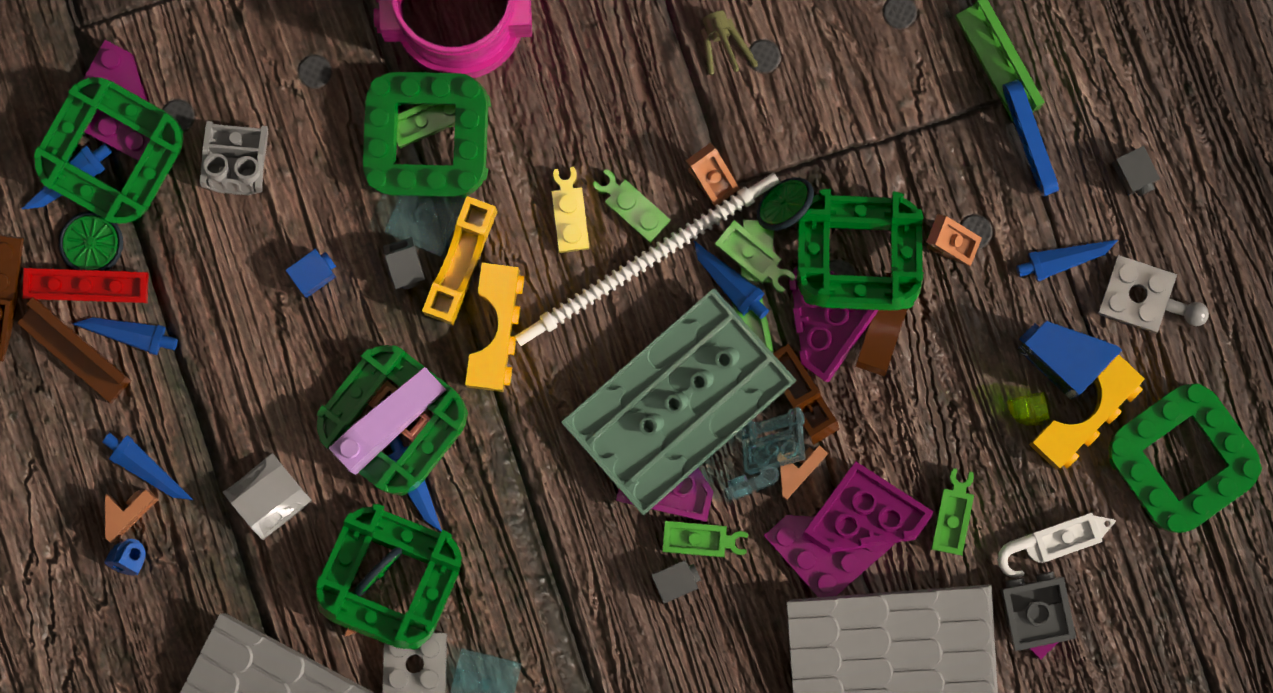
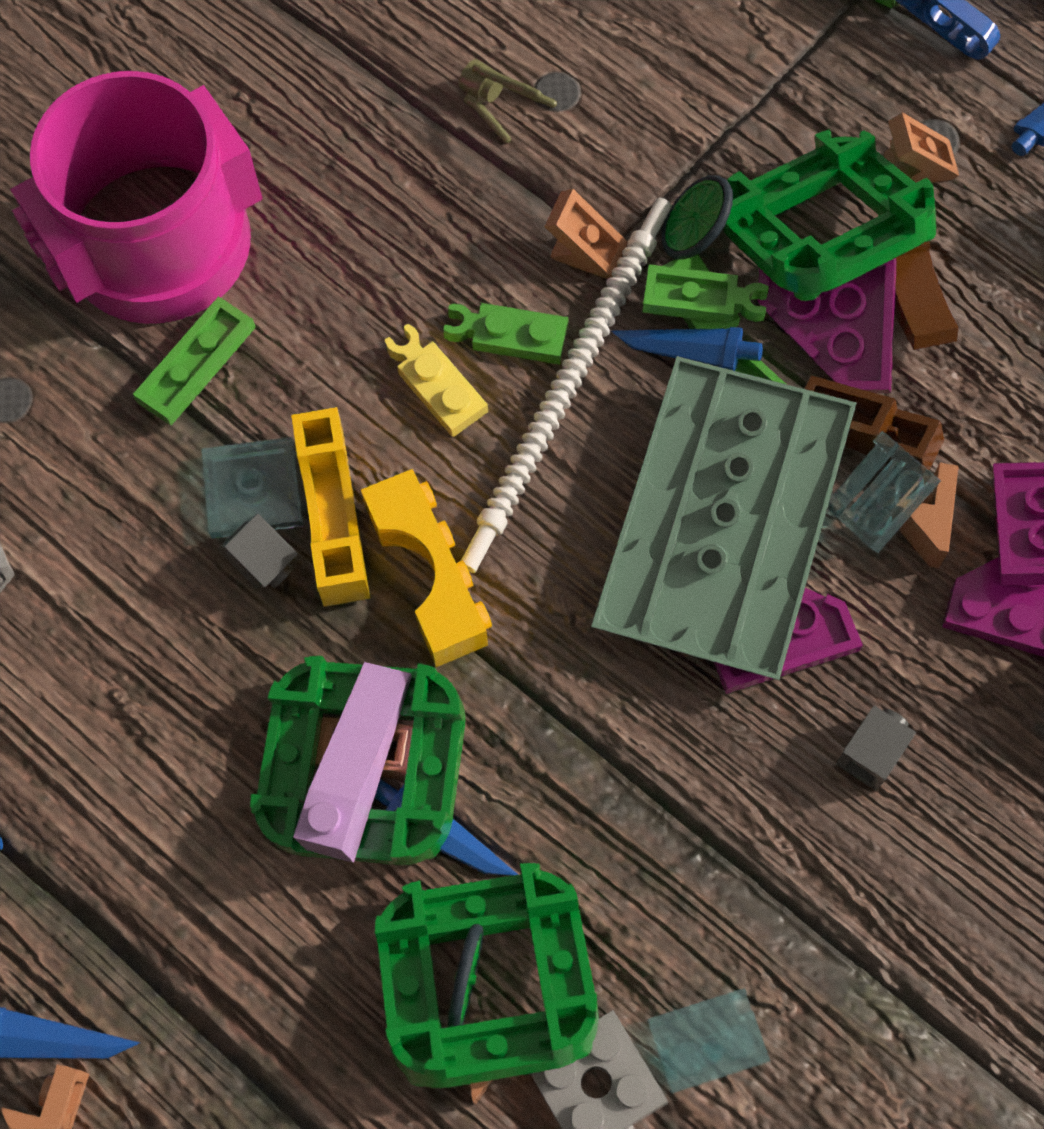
camera: 30 degrees left, 15 degrees down
(267, 497) = (246, 971): light grey slope -> none
(312, 272) = (139, 635): blue brick -> none
(469, 137) = (227, 433): green plate -> none
(700, 539) = (869, 675): bright green plate -> none
(742, 487) = (887, 561): clear light blue plate -> none

